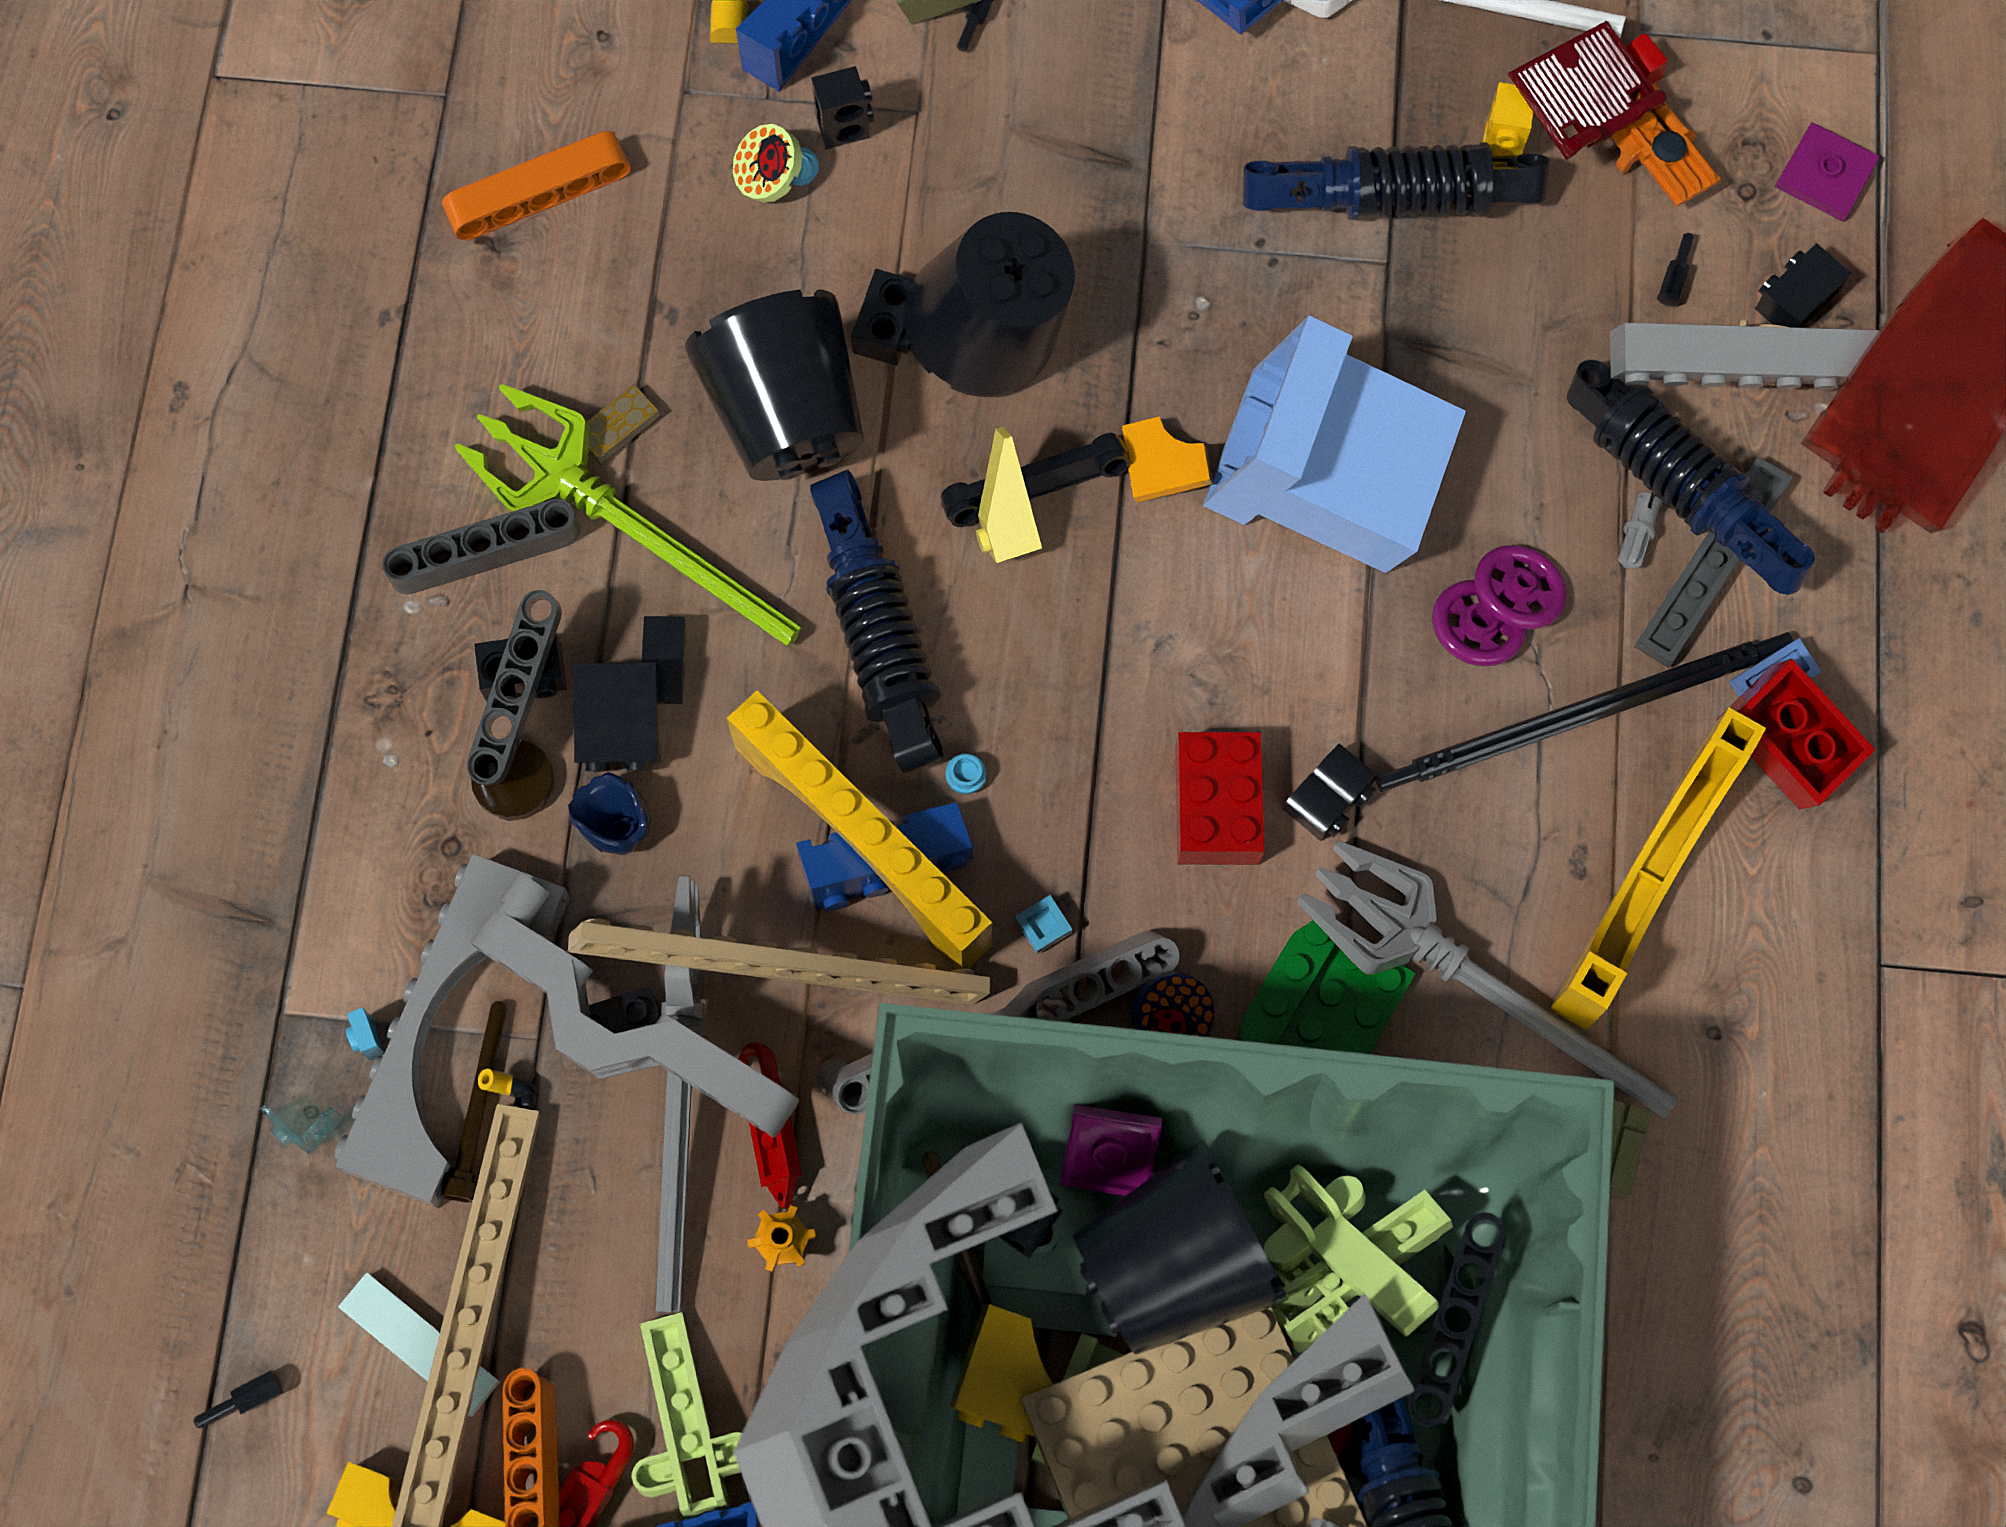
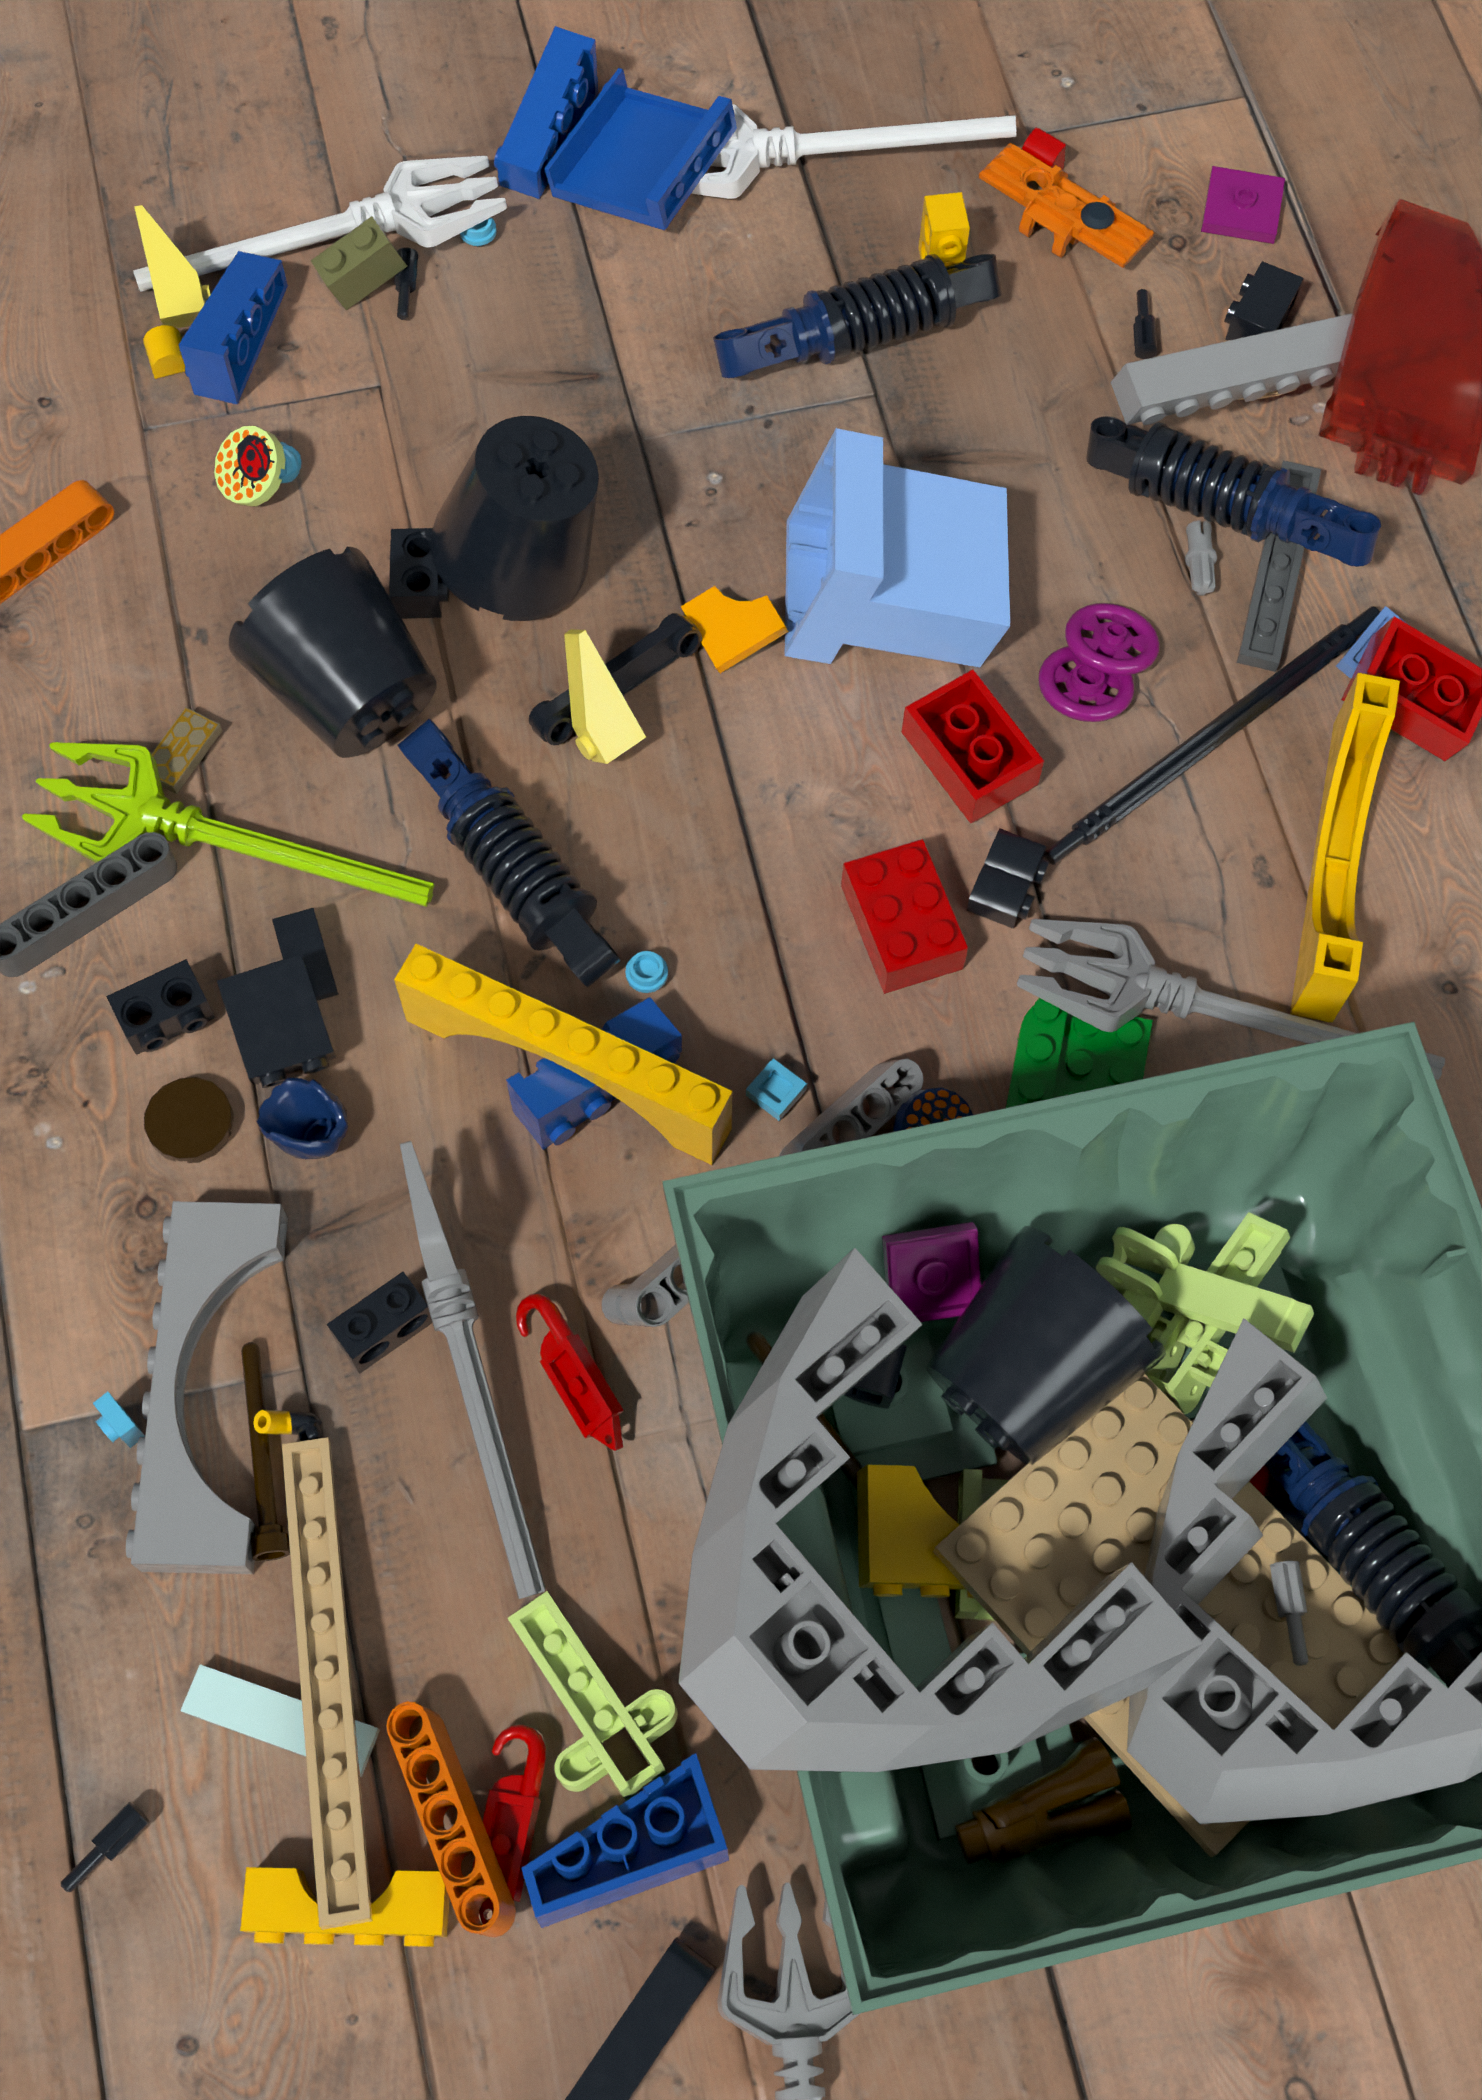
camera: 20 degrees left, 5 degrees down
(311, 1137) = (93, 1547): clear light blue bracket -> none
(513, 667) = (159, 1002): dark grey beam -> none
(606, 1054) = (379, 1348): light grey beam -> none
(767, 961) = (509, 1201): tan plate -> none
(784, 1253) = (625, 1494): light orange rock -> none
(842, 107) = (306, 393): black brick -> none
(1343, 653) = (972, 746): none -> red brick
(1458, 1297) = (1340, 1299): black beam -> none
(1586, 87) = (1005, 179): dark red window -> none

